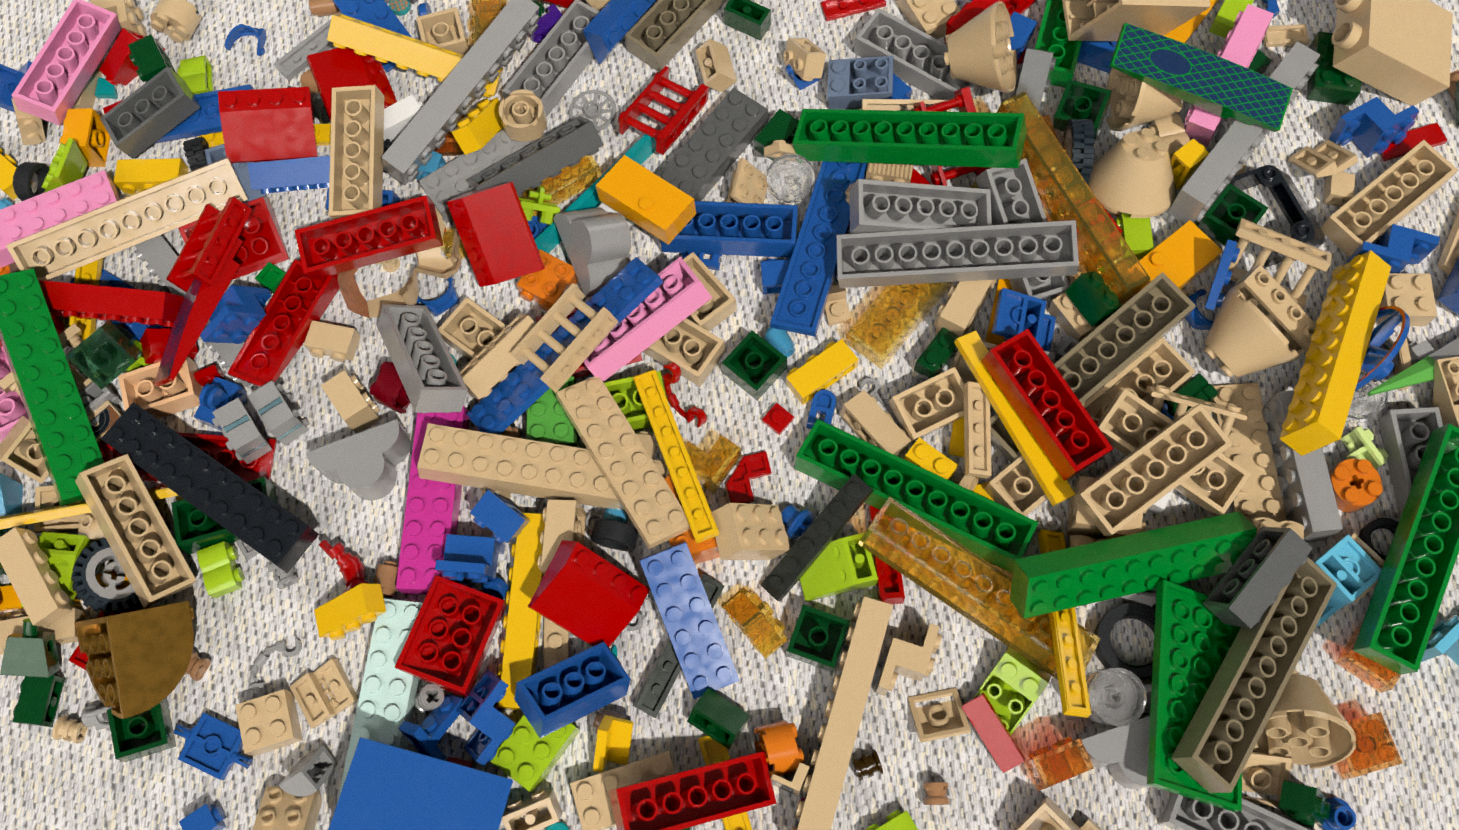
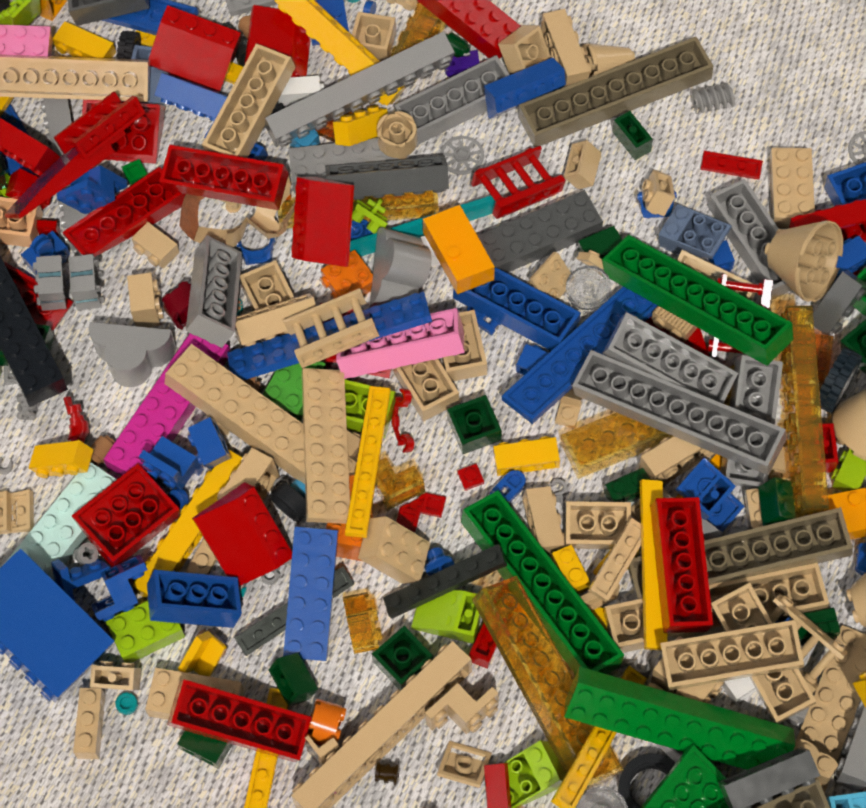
camera: 25 degrees right, 5 degrees down
(780, 340) = (506, 417): dark azure brick -> none

